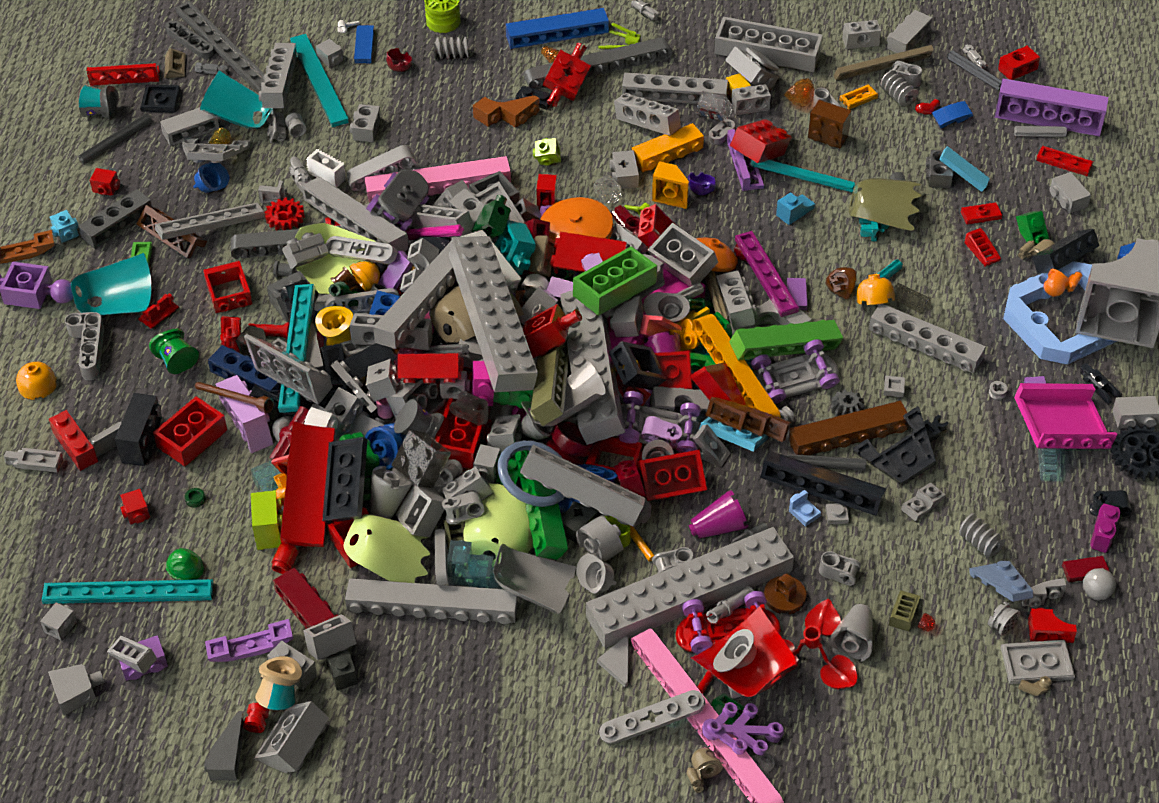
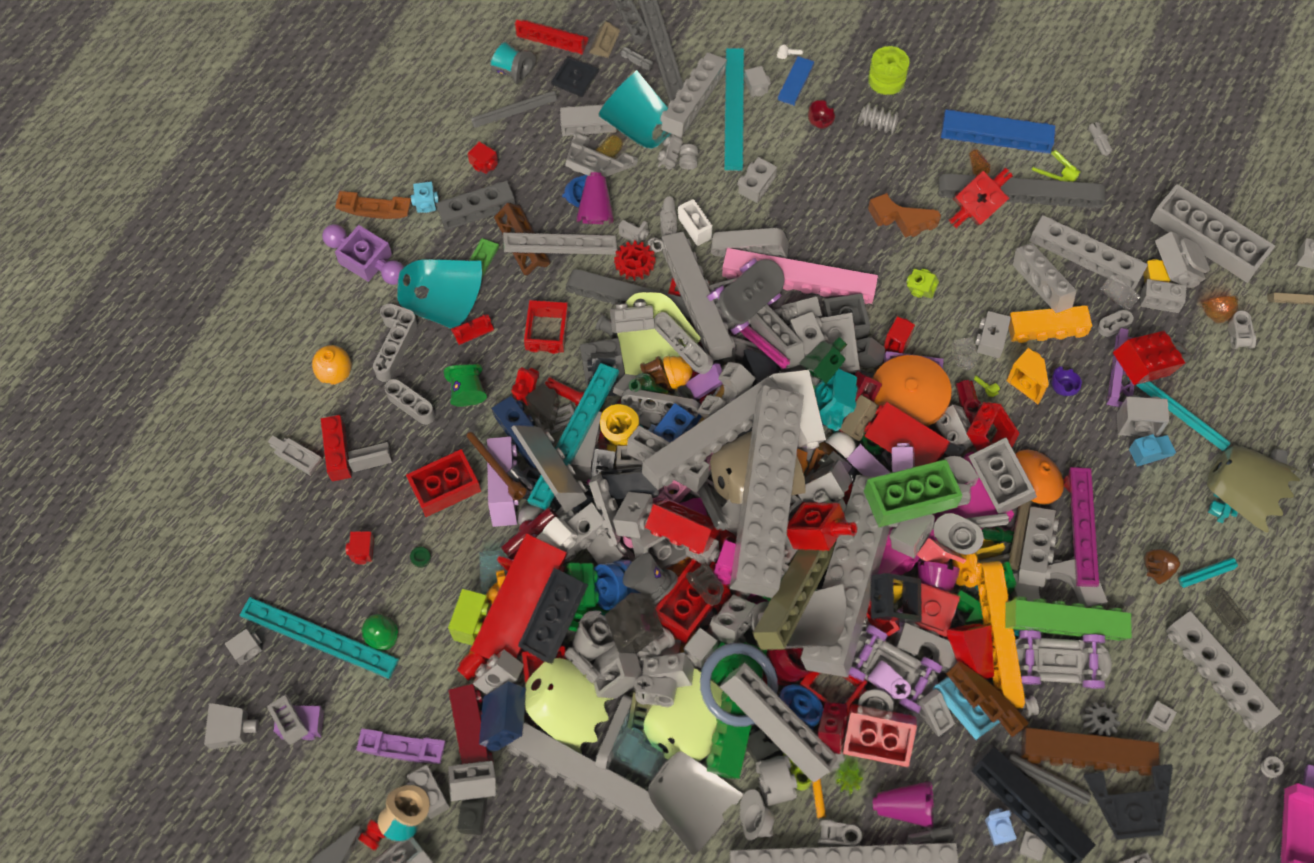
camera: 25 degrees right, 15 degrees up
(125, 382) = (406, 394): none -> light grey beam
(136, 431) = (399, 458): black brick -> none
(229, 179) = (595, 201): none -> magenta cone
(299, 195) = (659, 244): none -> light grey pin
(313, 561) = (497, 672): none -> light grey brick
(334, 577) = (502, 716): none -> dark blue brick
(388, 513) = (582, 664): none -> light grey axle
(527, 91) = (935, 202): black plate -> none
(662, 521) = (845, 784): none -> clear neon green gear
(775, 183) = (1142, 416): none -> light grey brick
(797, 289) = (1109, 556): medium lavender tile -> none
(829, 124) = (1233, 361): reddish brown brick -> none
(860, 98) = (1270, 337): light orange tile -> none
(875, 290) = (1191, 595): light orange cylinder -> none
(935, 428) = (1178, 787): black plate -> none

